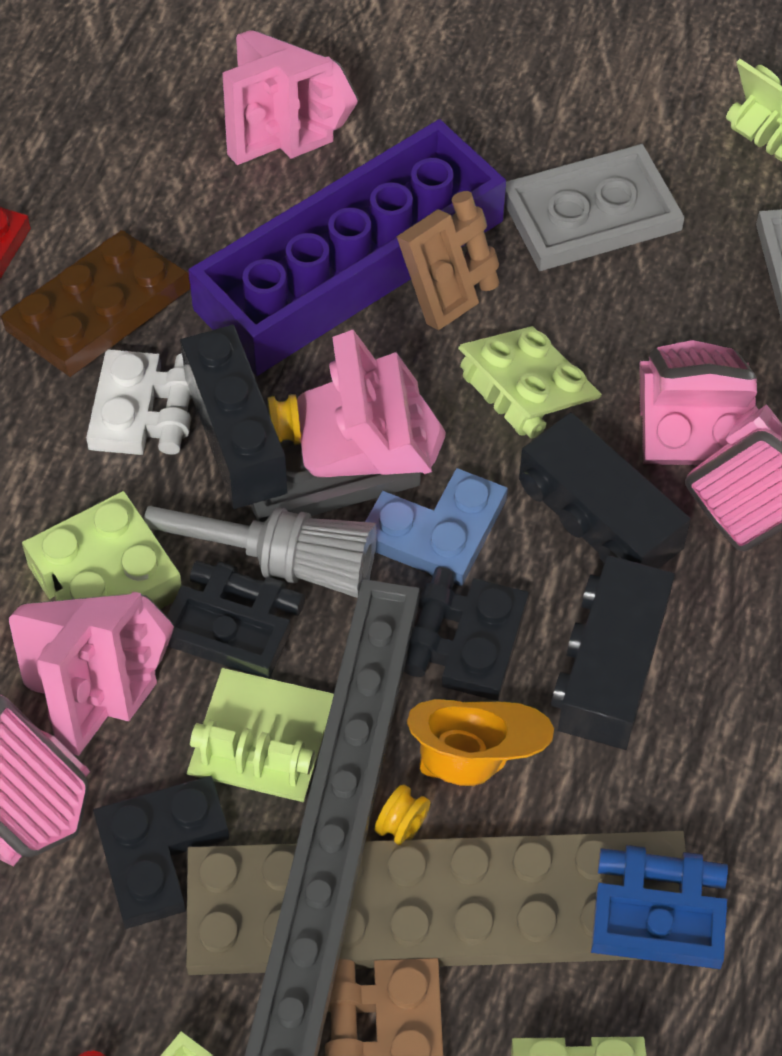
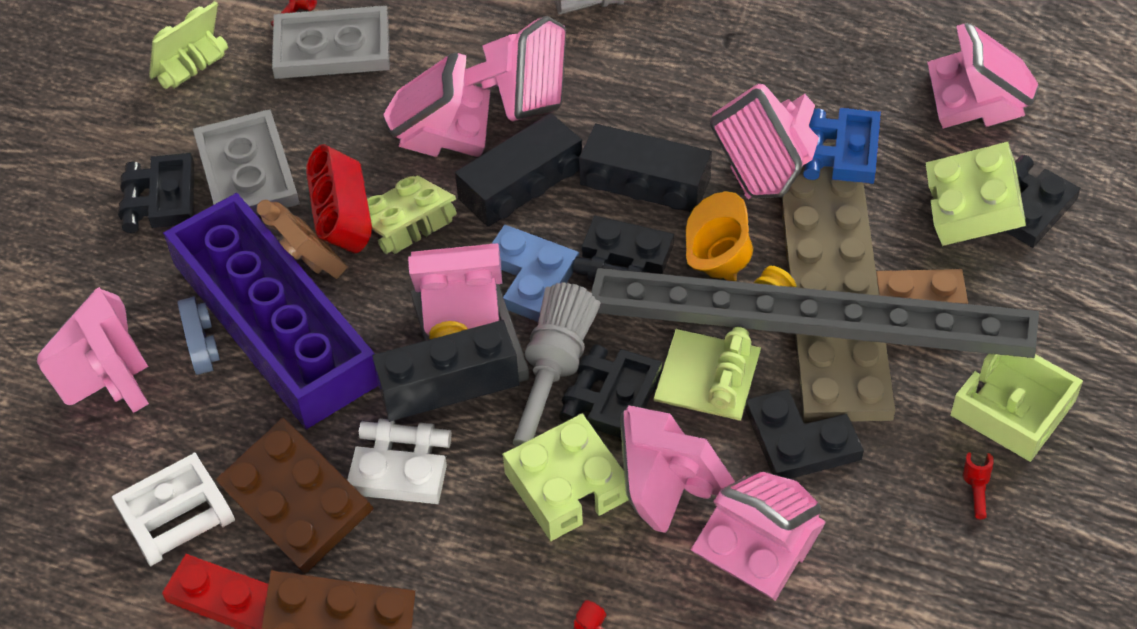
camera: 85 degrees left, 5 degrees down
(98, 186) = (167, 497): none -> white plate
(303, 181) = (201, 348): none -> sand blue plate
(530, 298) = (338, 199): none -> red beam
(544, 129) = (170, 192): none -> black plate
(643, 791) = (765, 140): none -> bright pink piece

